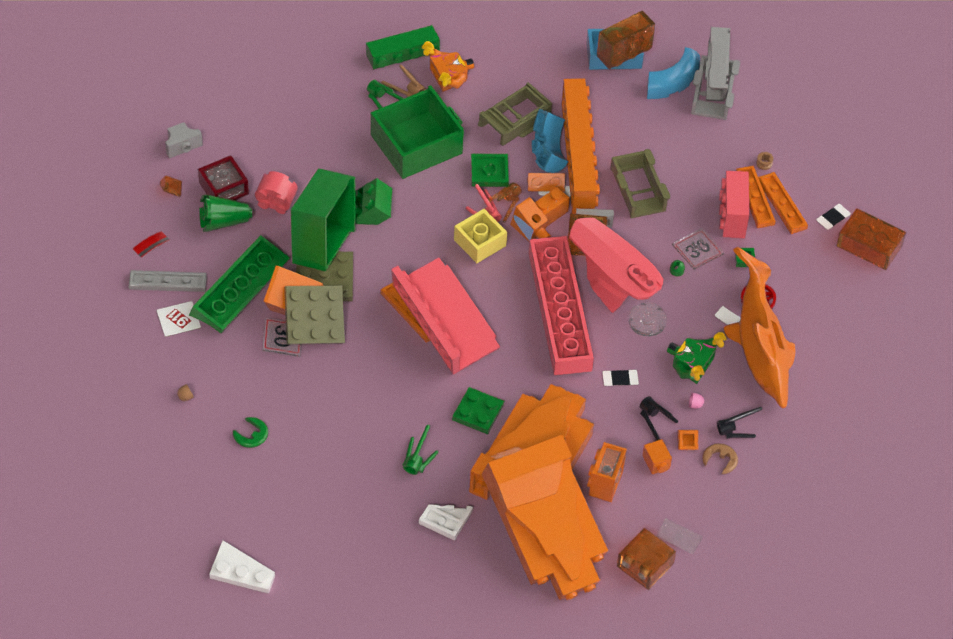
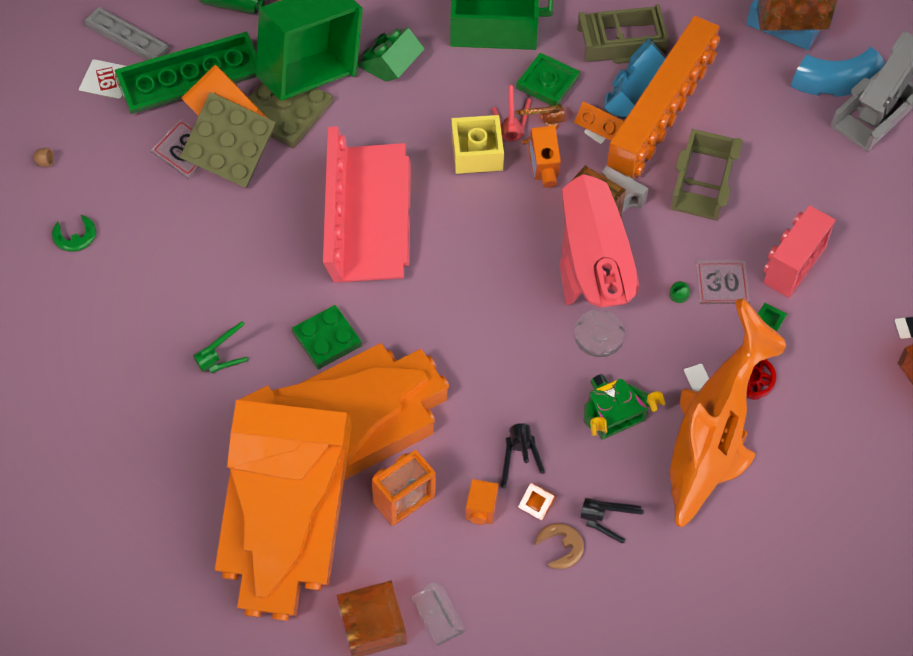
camera: 35 degrees right, 5 degrees up
(445, 519) = (190, 441): white wing -> none
(553, 204) = (581, 150): orange brick -> none
(560, 305) = (503, 267): coral brick -> none
(620, 377) = (517, 384): sticker -> none
(696, 401) = (581, 460): bright pink hinge -> none
(757, 200) = (836, 256): orange tile -> none
(764, 156) = (880, 213): medium nougat bush -> none
(783, 203) = (865, 279): orange tile -> none

